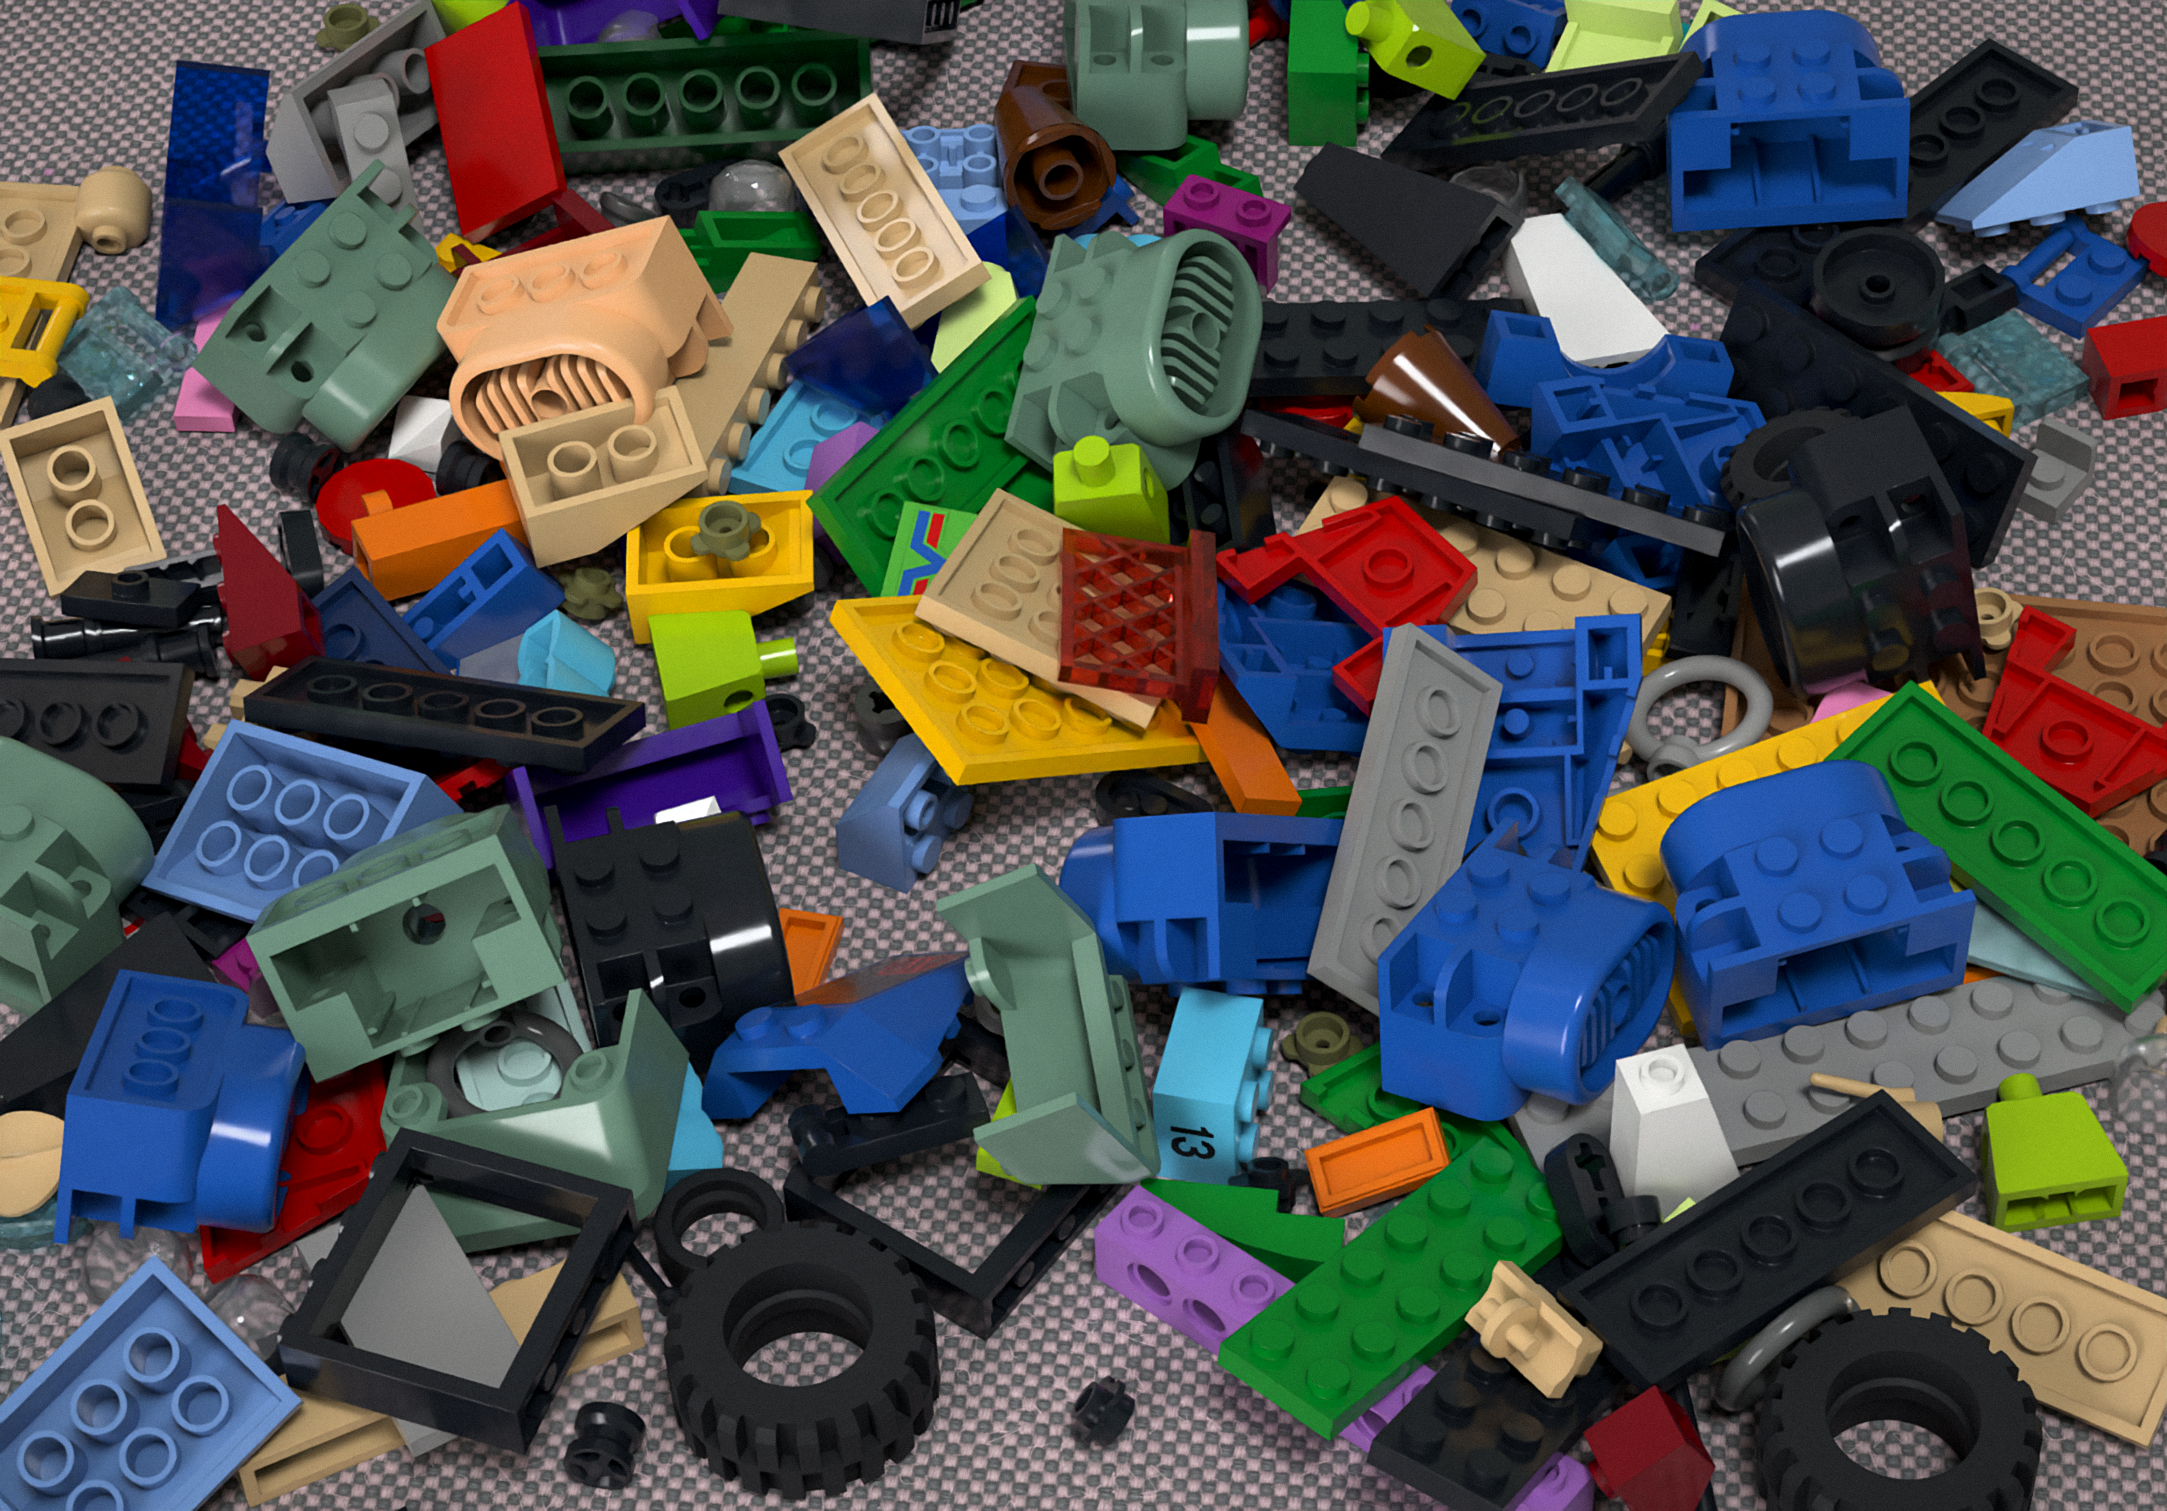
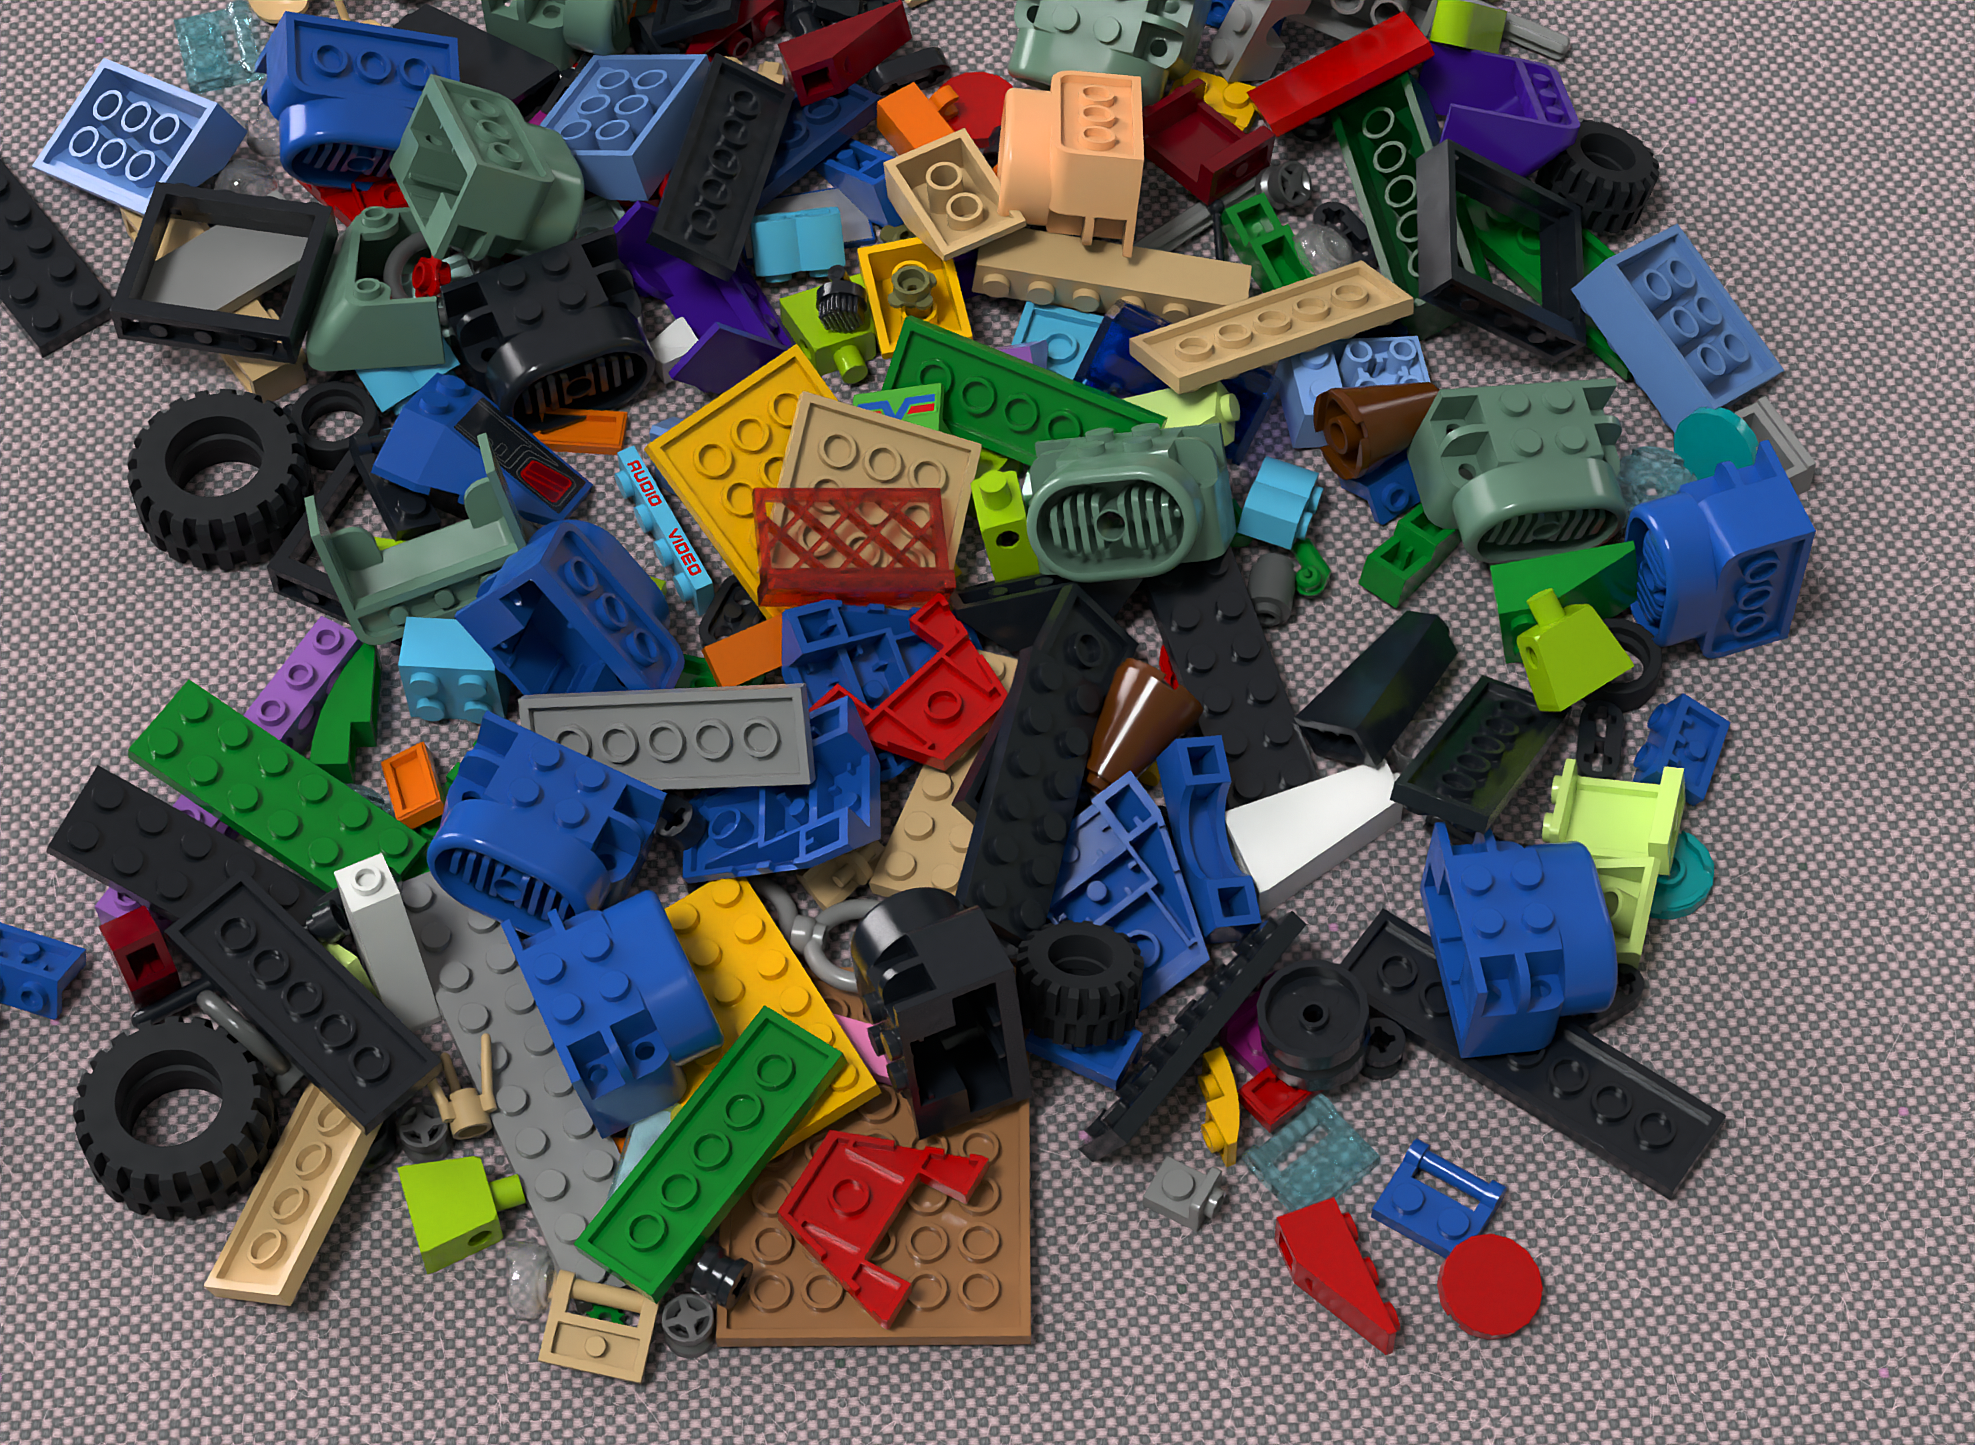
camera: 80 degrees right, 10 degrees up
(303, 466) = (995, 54): black wheel -> none
(506, 1059) = (429, 276): none -> red plate
(604, 1445) = (160, 391): black wheel -> none
(713, 617) = (841, 302): none -> black piece
(909, 890) = (671, 542): none -> medium azure plate
(1102, 1411) = (201, 655): black plate -> none
(1237, 215) = (1350, 570): magenta bracket -> none
(1275, 1175) = (397, 726): black plate -> none
(1532, 1331) = (226, 845): tan hips -> none
(1619, 244) = (1378, 837): clear light blue plate -> none
(1976, 299) = (1379, 1120): black plate -> none
(1996, 616) = (983, 1125): tan plate -> none
(2047, 174) = (1521, 1160): light blue slope -> none

